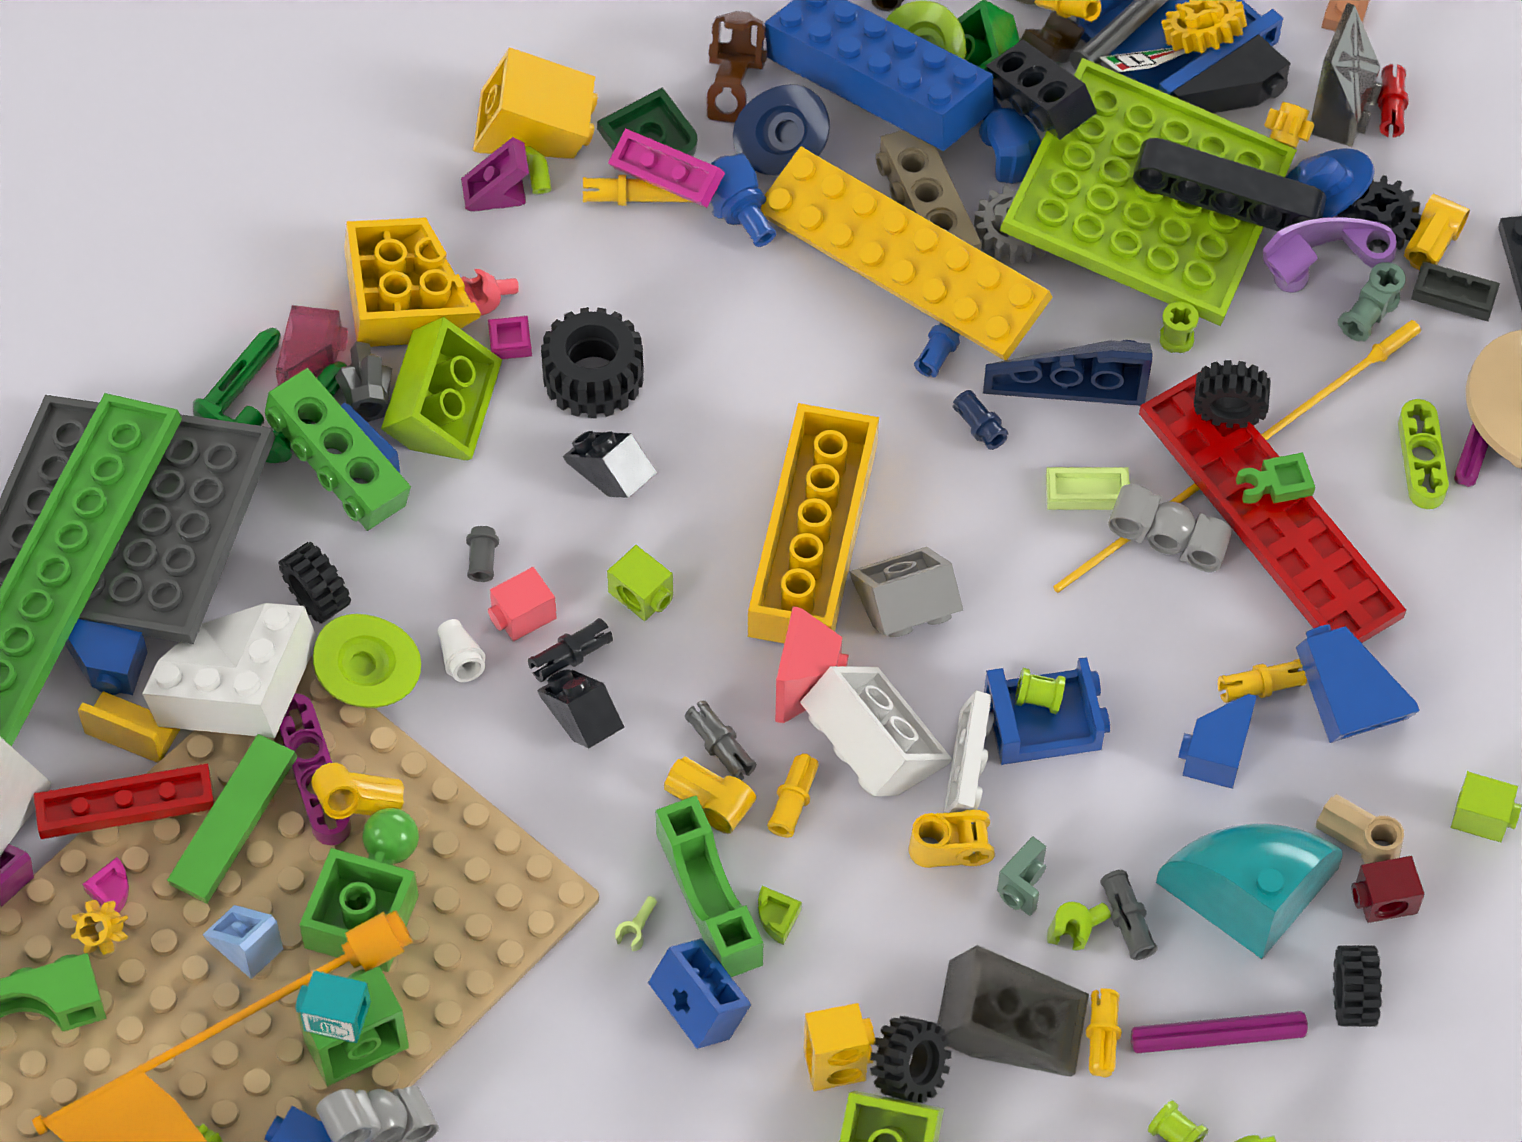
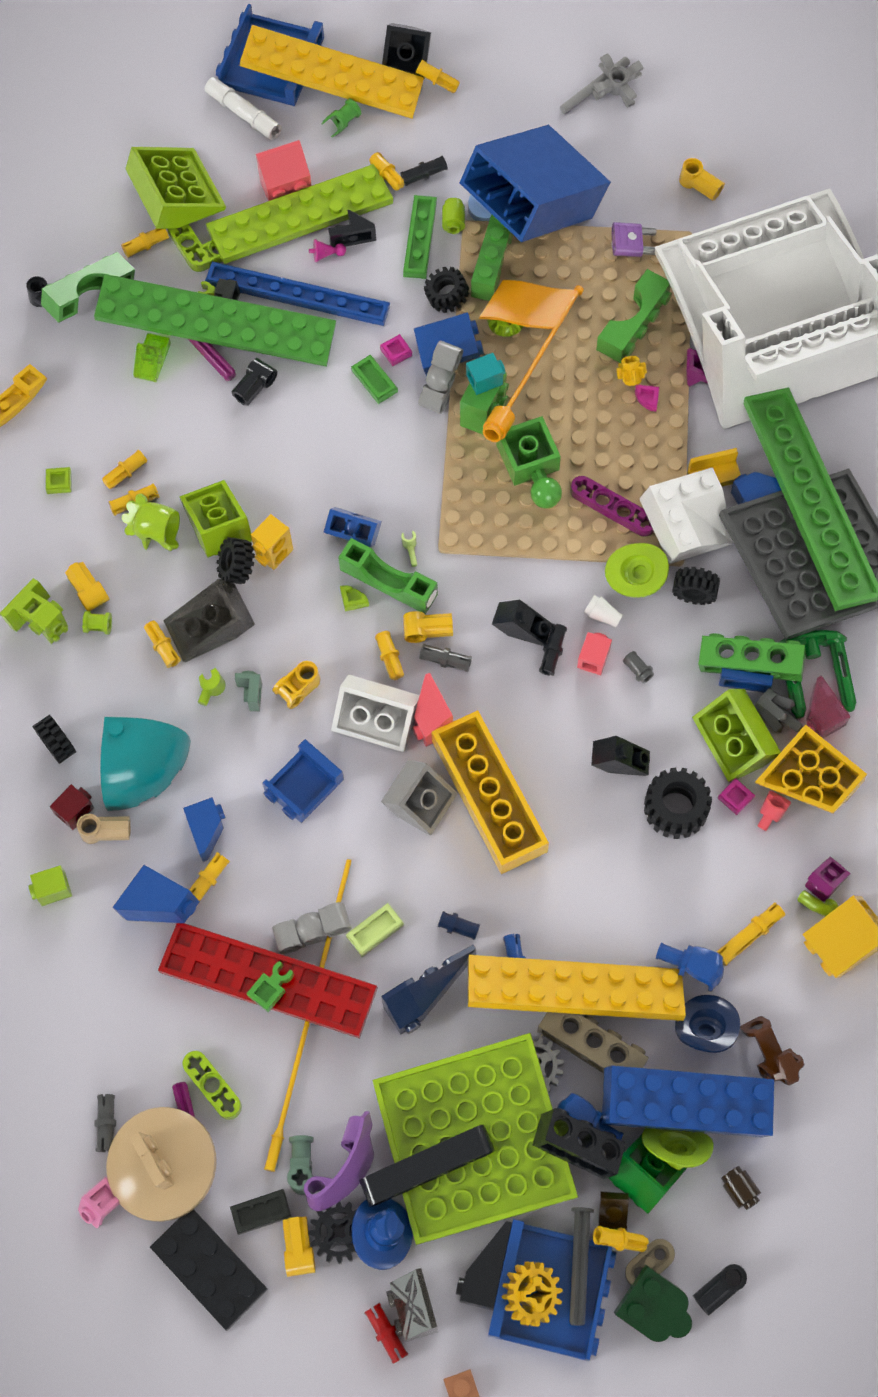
camera: 145 degrees right, 10 degrees up
(123, 801) = (677, 431): red plate -> none
(232, 818) = (623, 456): bright green tile -> none
(246, 938) = (569, 411): light blue slope -> none
(354, 792) = (581, 491): yellow piece -> none
(640, 583) = (548, 704): lime brick -> none
(654, 118) = (774, 972): dark green plate -> none
(666, 168) = (741, 940): dark pink plate -> none
(968, 754) = (320, 729): white plate -> none
(1039, 690) = (310, 785): lime bush -> none
(1128, 915) = (189, 709): dark grey pin -> none
(1141, 60) = (550, 1234): sticker -> none
(1179, 326) = (390, 1056): lime bush -> none
(1219, 1032) = (109, 684): magenta axle -> none
(1232, 394) = (325, 1010): black tyre -> none
(1289, 124) = (432, 1258): yellow gear -> none

